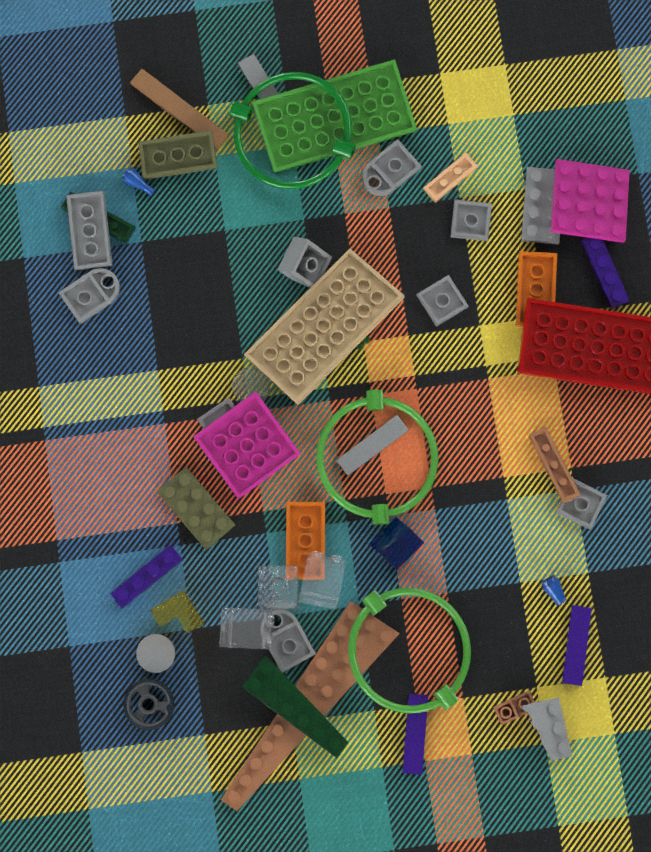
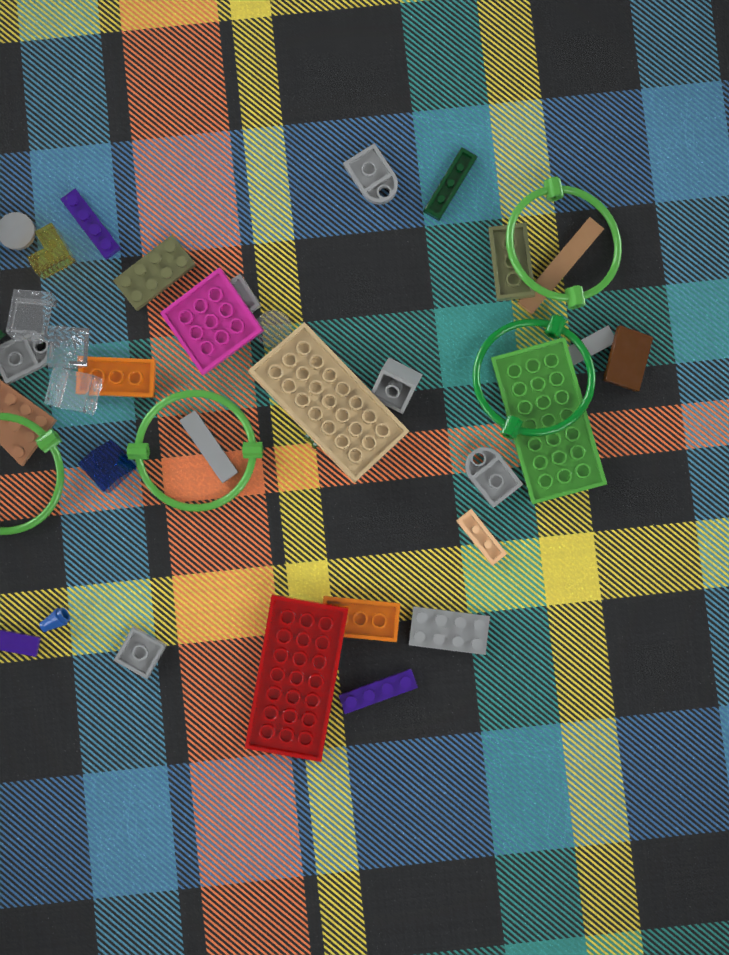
camera: 90 degrees right, 5 degrees up
(89, 230) = (436, 173): light grey tile -> none
(104, 115) = (554, 191): none -> bright green piece
(134, 179) = (487, 219): blue cone -> none
(270, 43) = (628, 358): none -> reddish brown tile
(442, 300) = (353, 522): light grey tile -> none
(471, 220) = (436, 556): light grey tile -> none
(554, 465) = (178, 627): nougat tile -> none
(590, 201) = (450, 679): dark pink plate -> none

